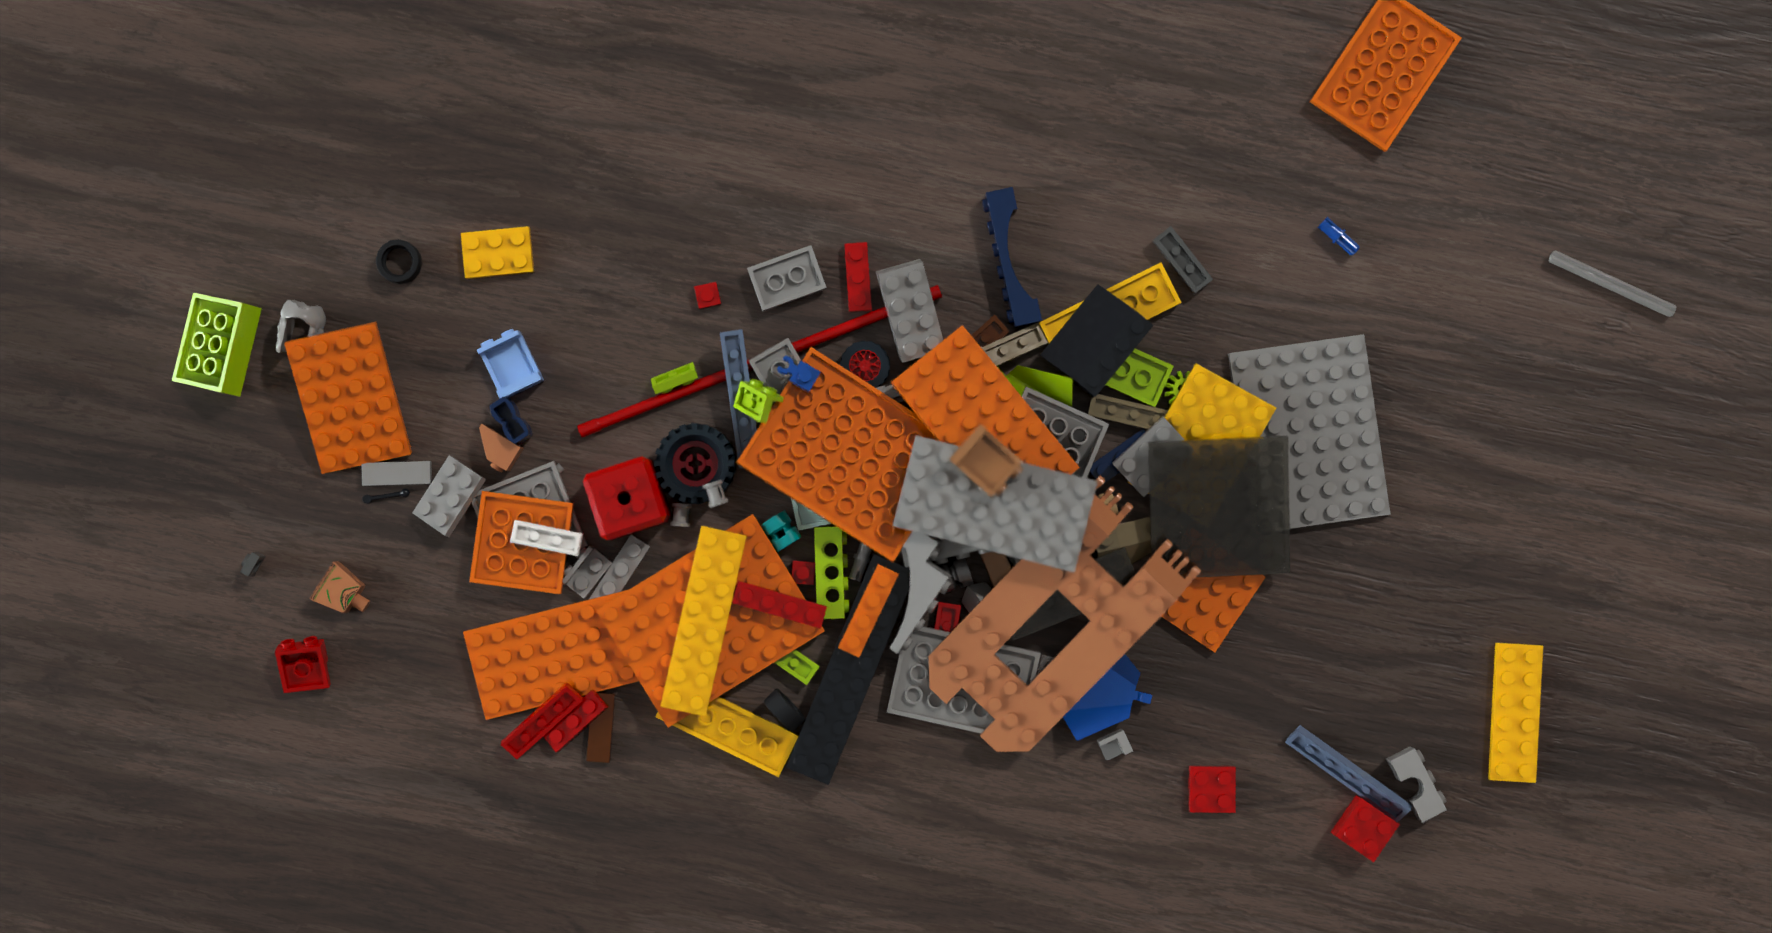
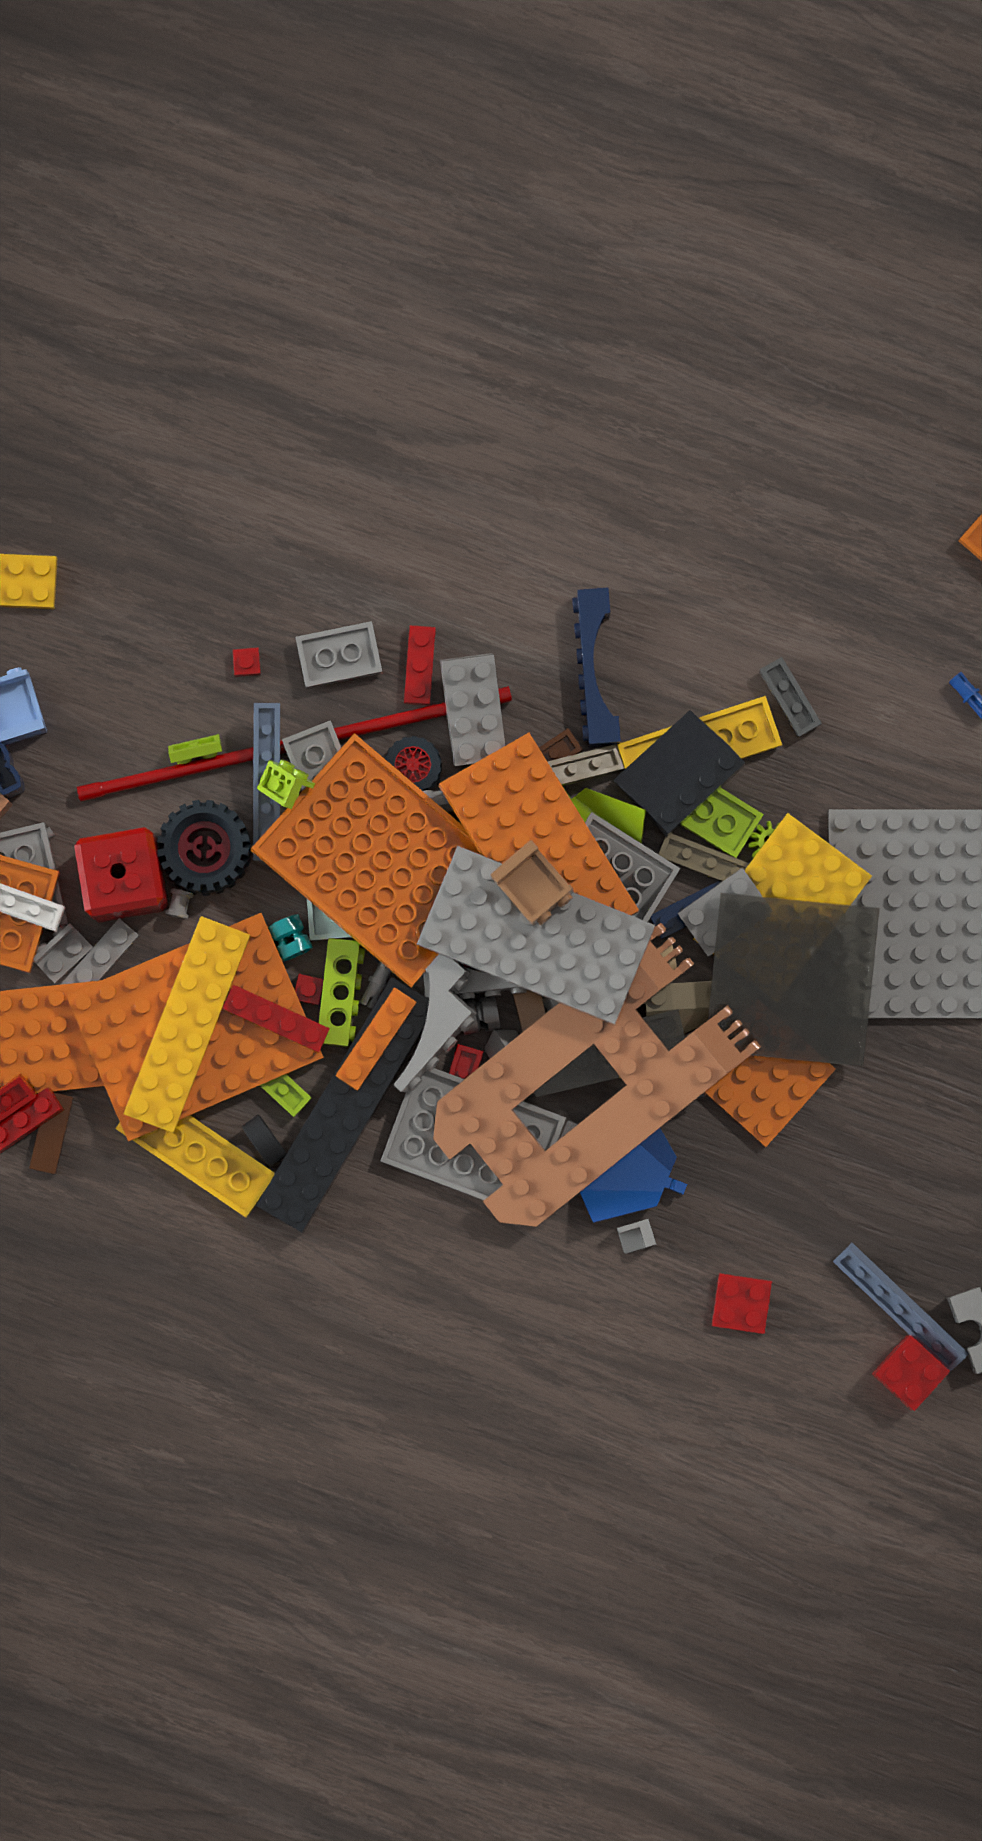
camera: 10 degrees right, 5 degrees down
(715, 493) = (222, 881): light grey bush -> none
(801, 375) = (339, 762): blue plate -> none

